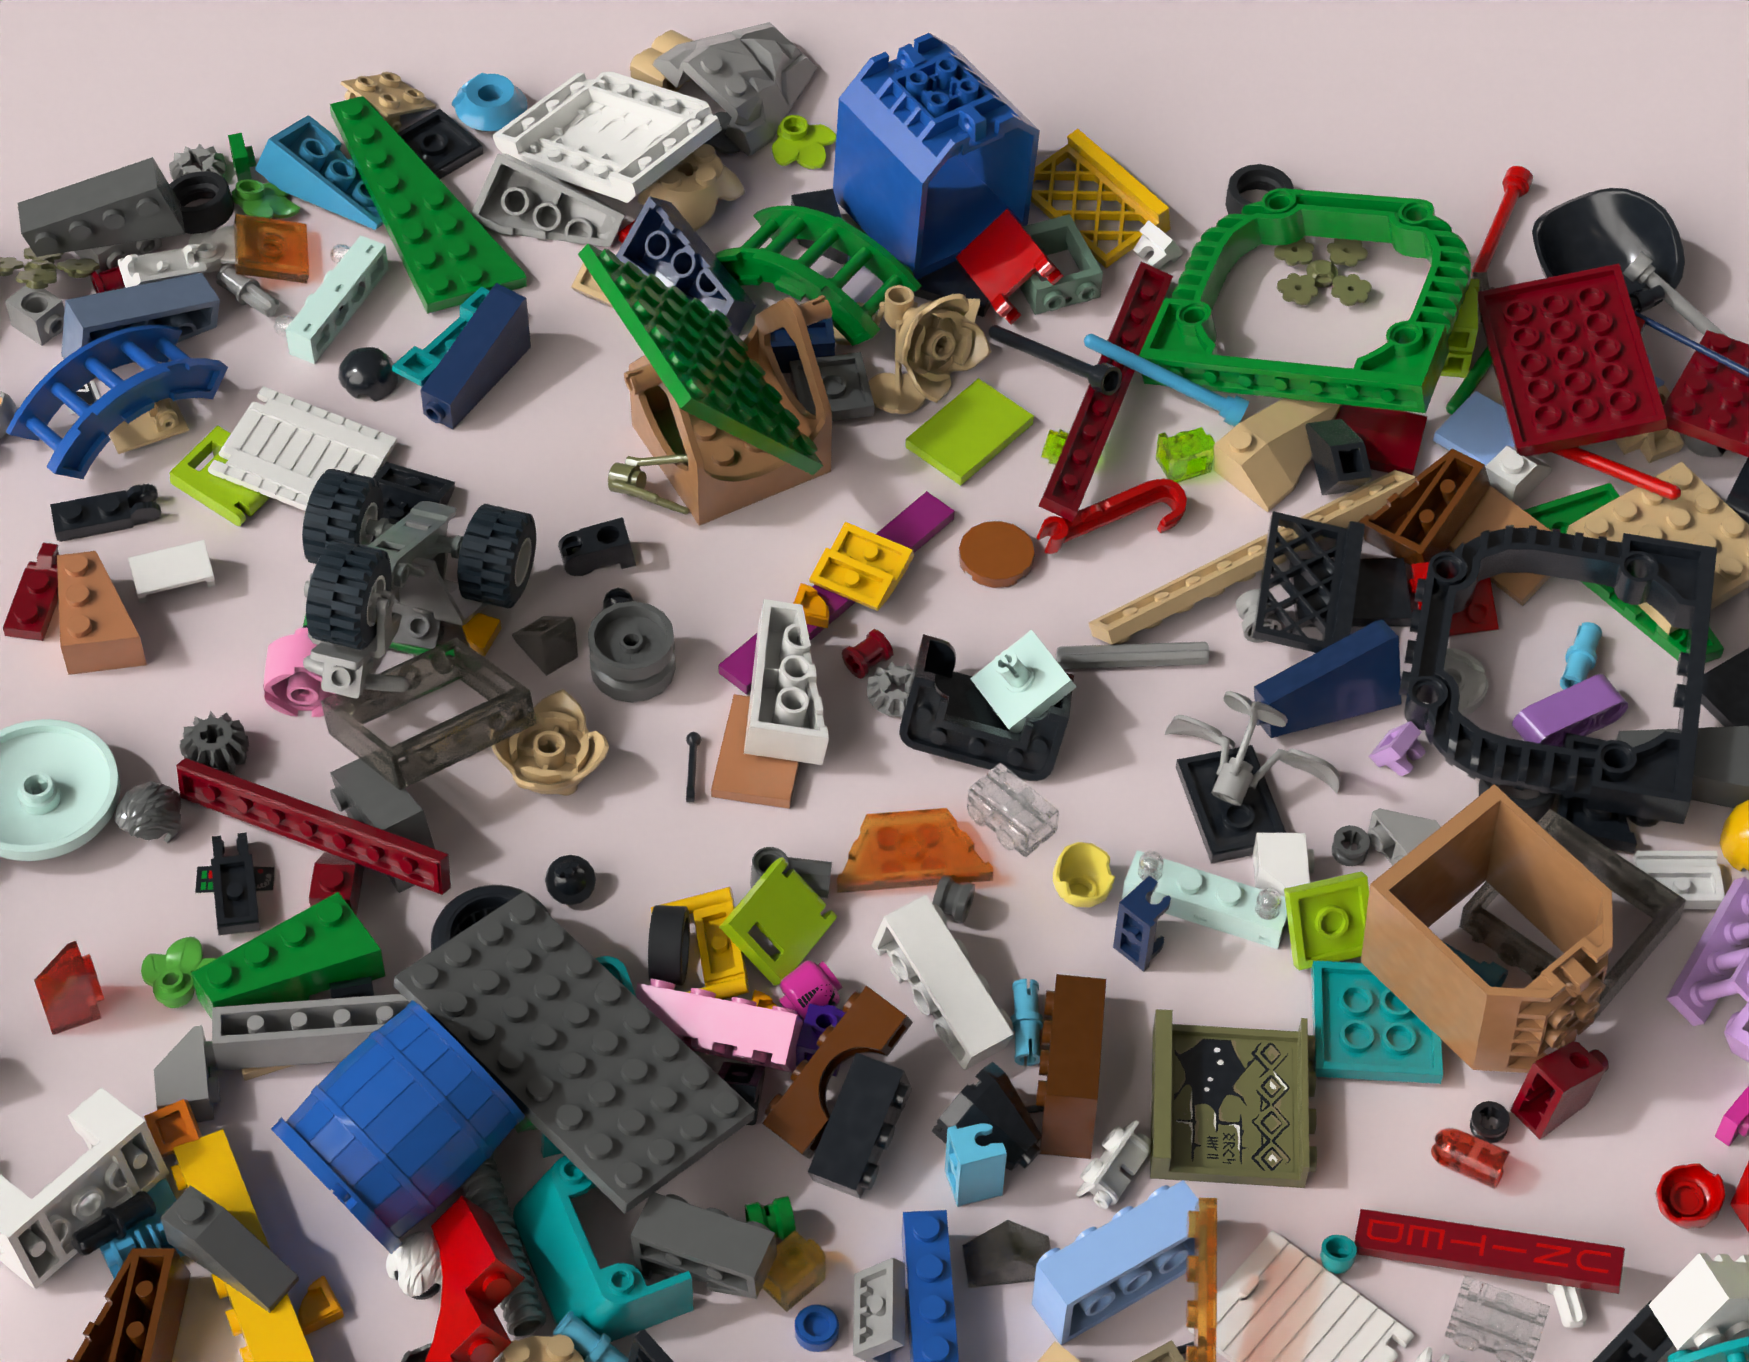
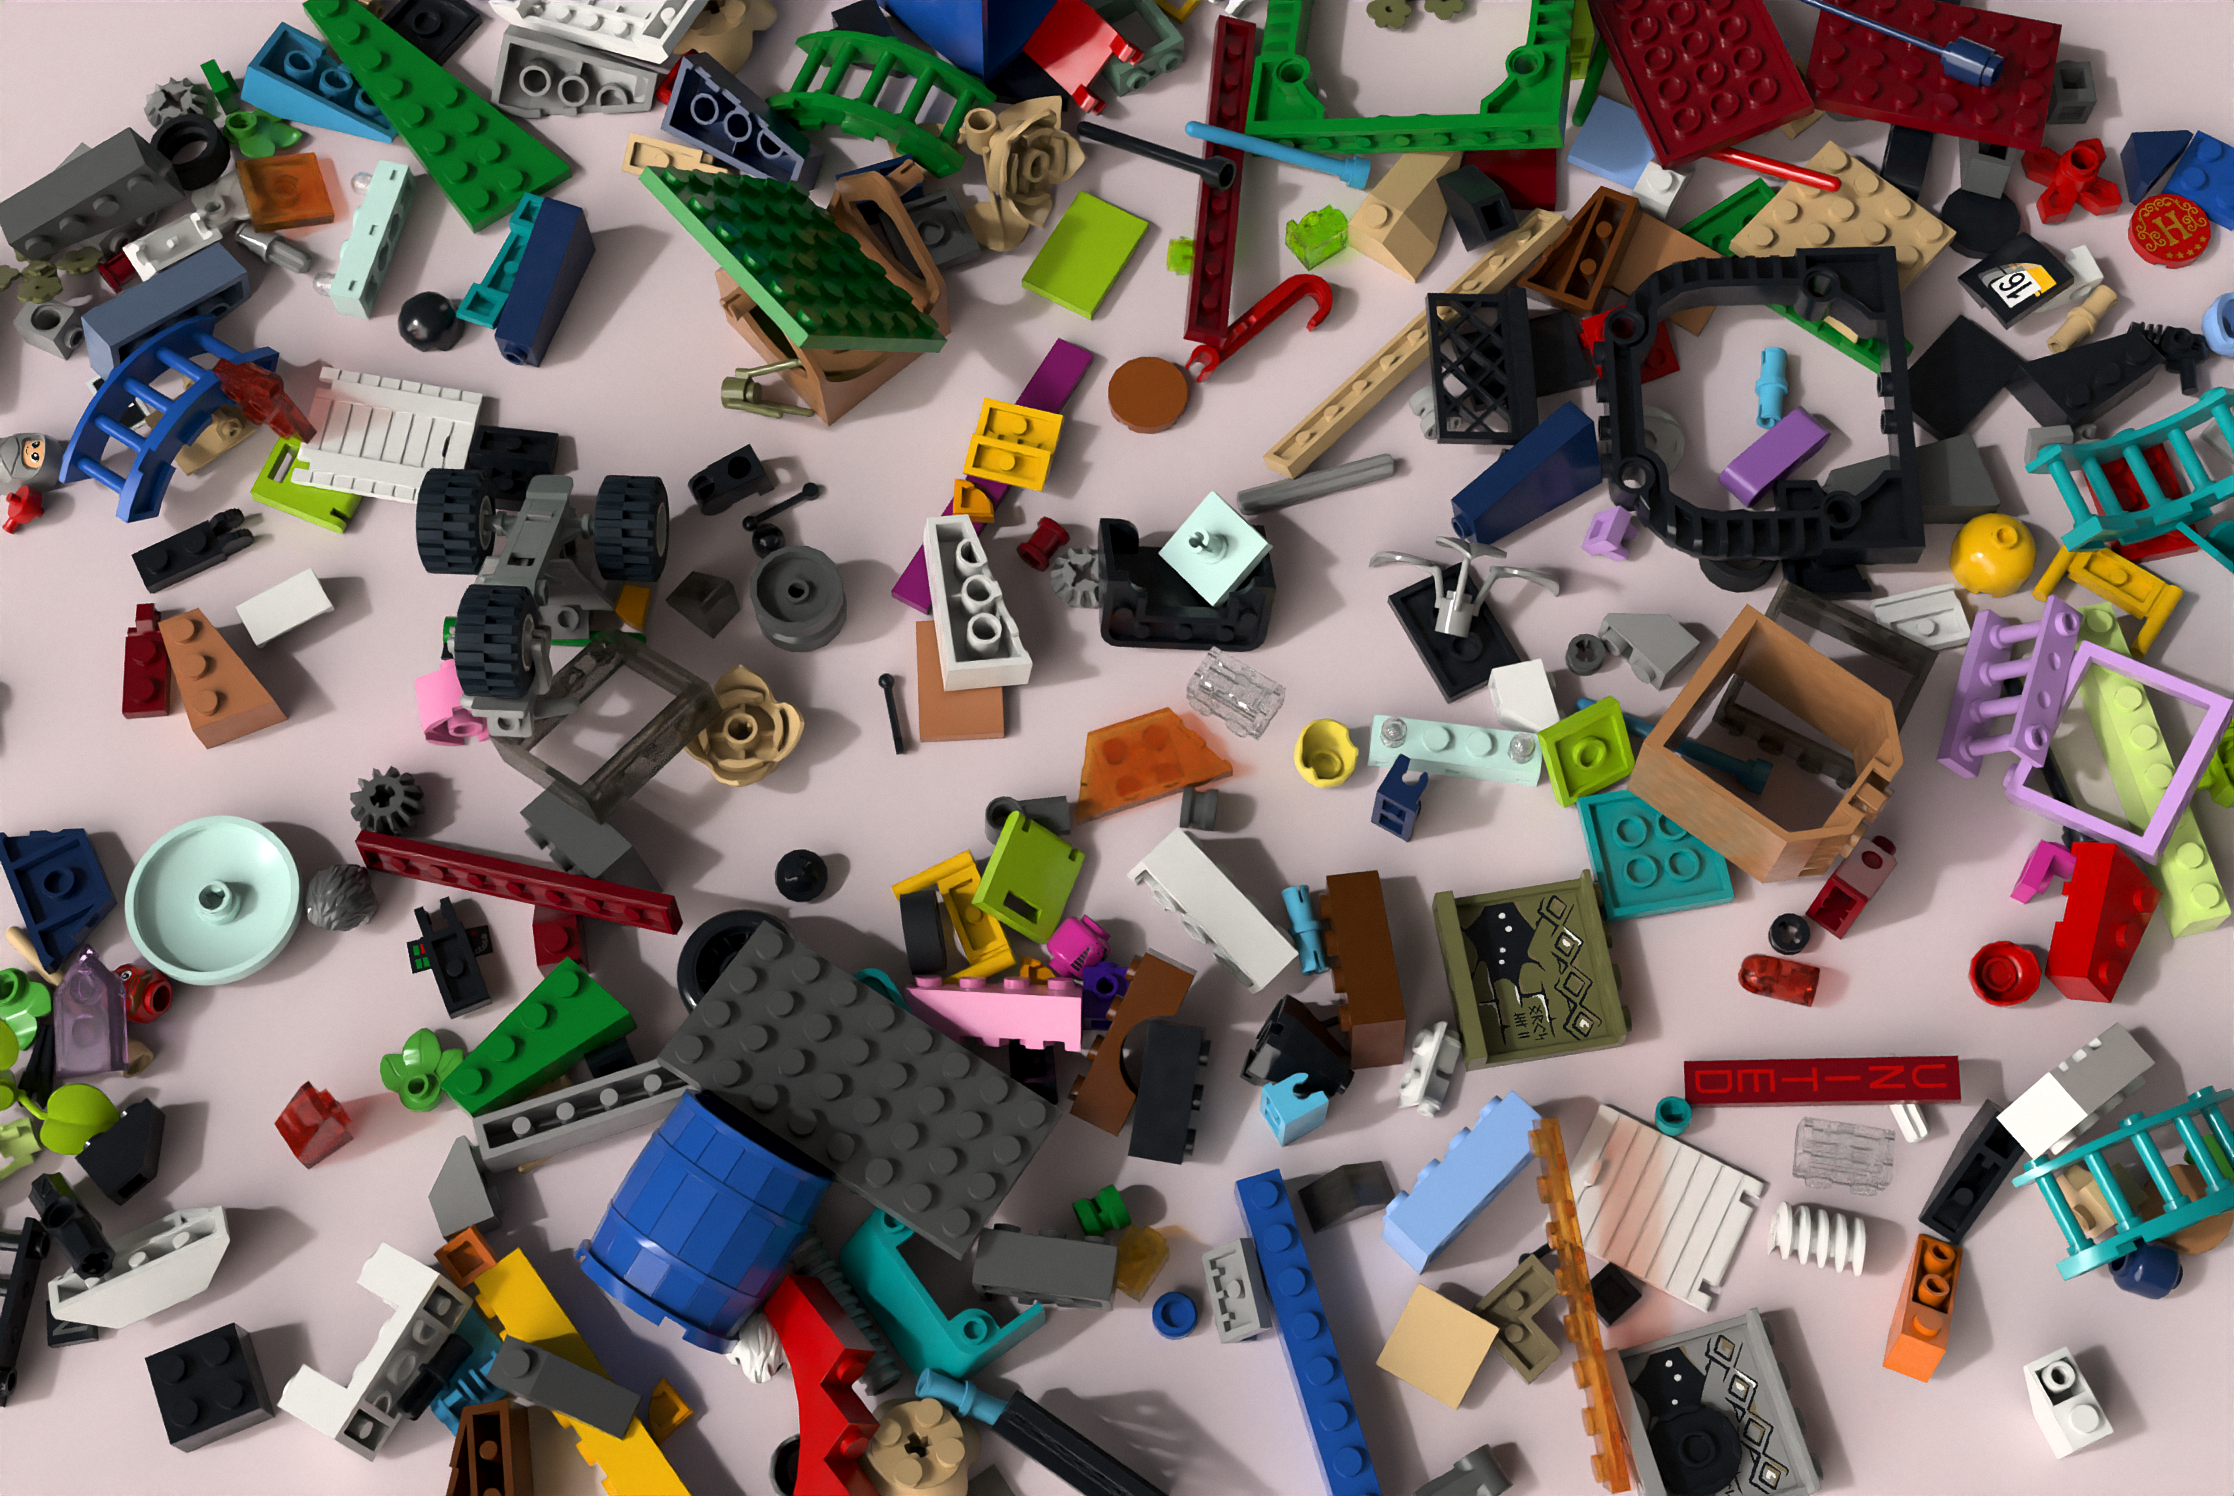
camera: 10 degrees left, 15 degrees up
(203, 396) = (263, 399): none -> clear red plate
(667, 574) = (810, 492): none -> black hinge

